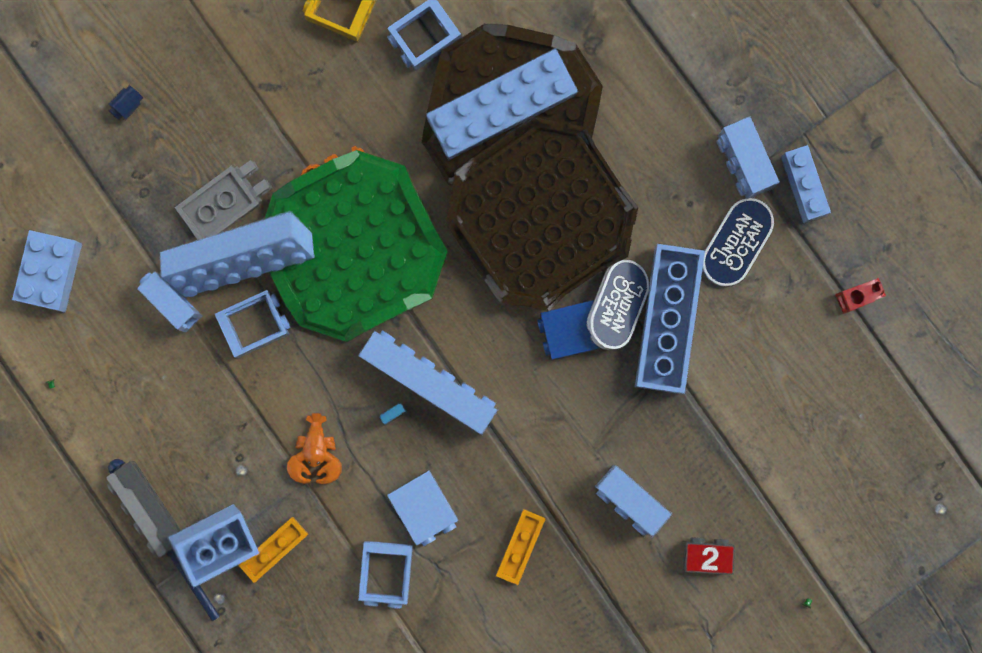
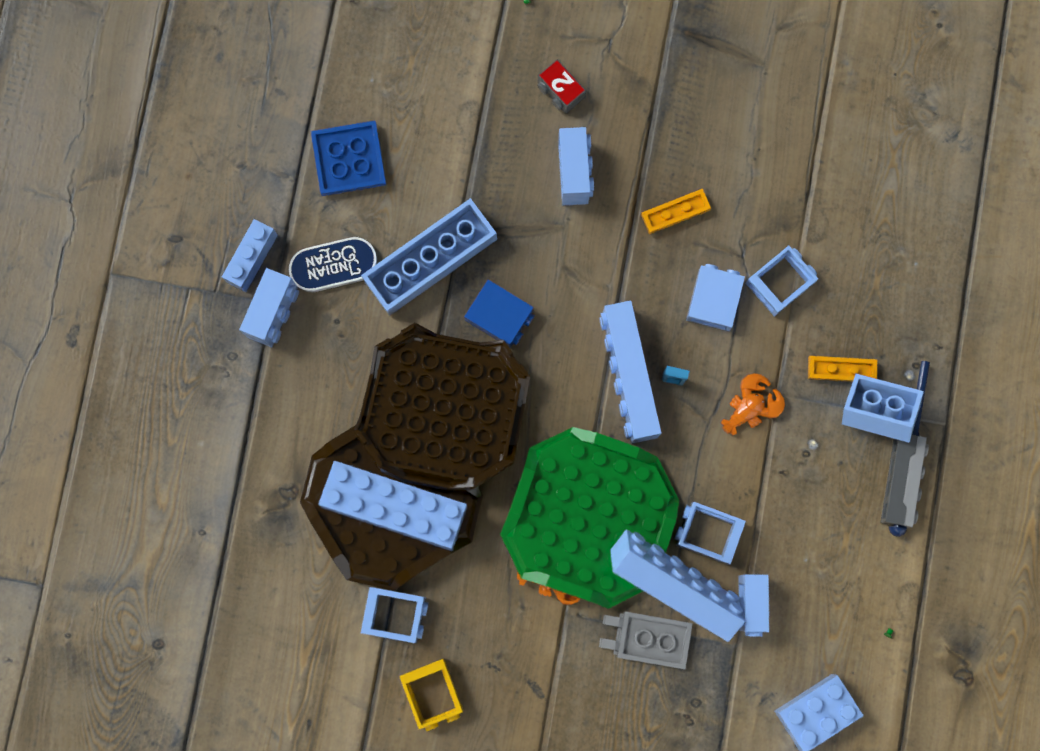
camera: 135 degrees left, 5 degrees down
(618, 305) = (453, 299): tile -> none
(812, 334) = (348, 158): none -> blue plate
(860, 295) = (291, 151): red leg -> none

